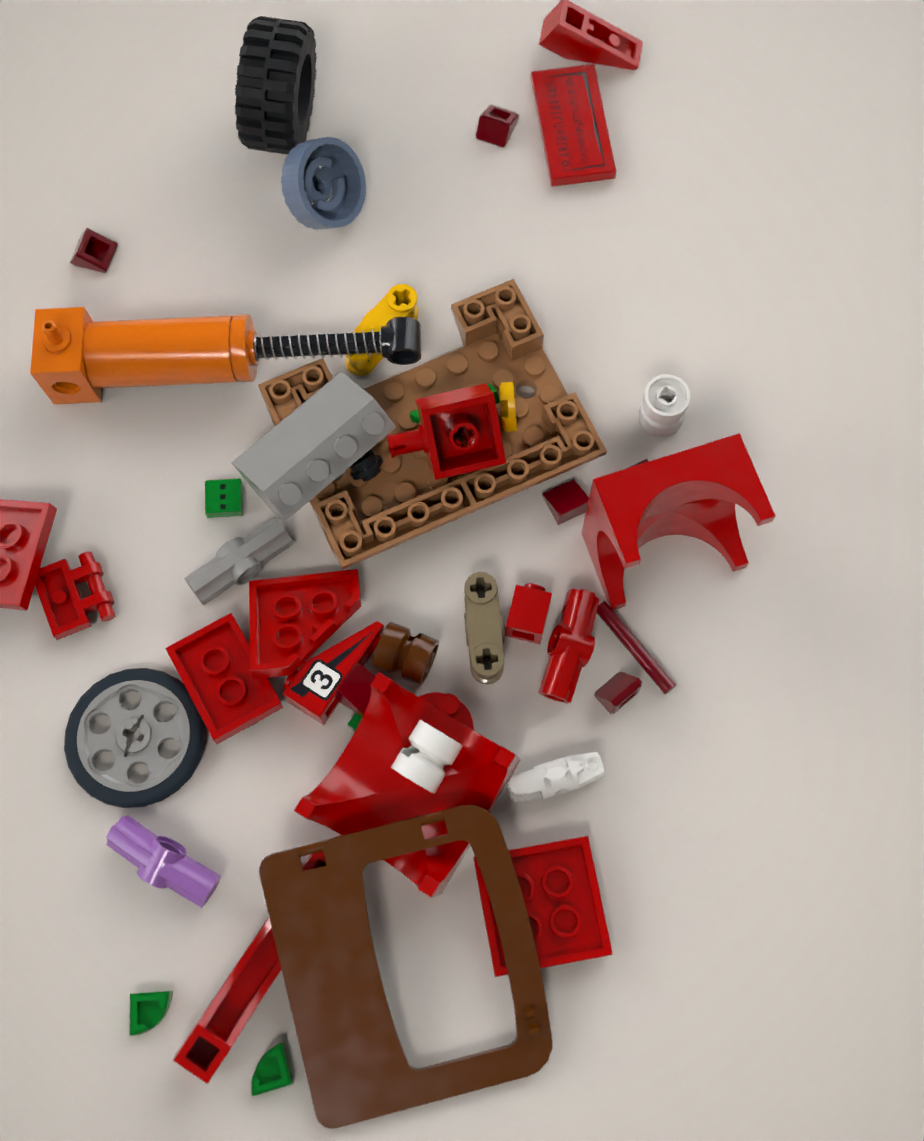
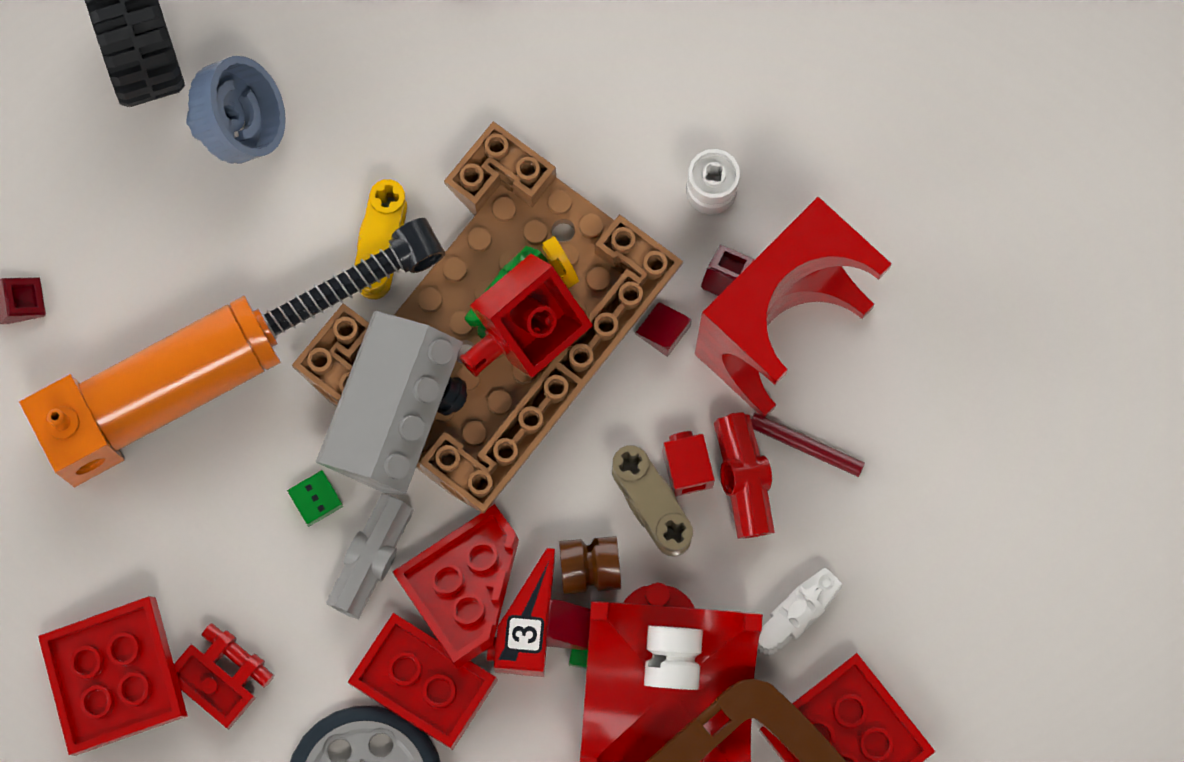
camera: 30 degrees left, 5 degrees up
(618, 691) = (812, 497): dark red slope -> none

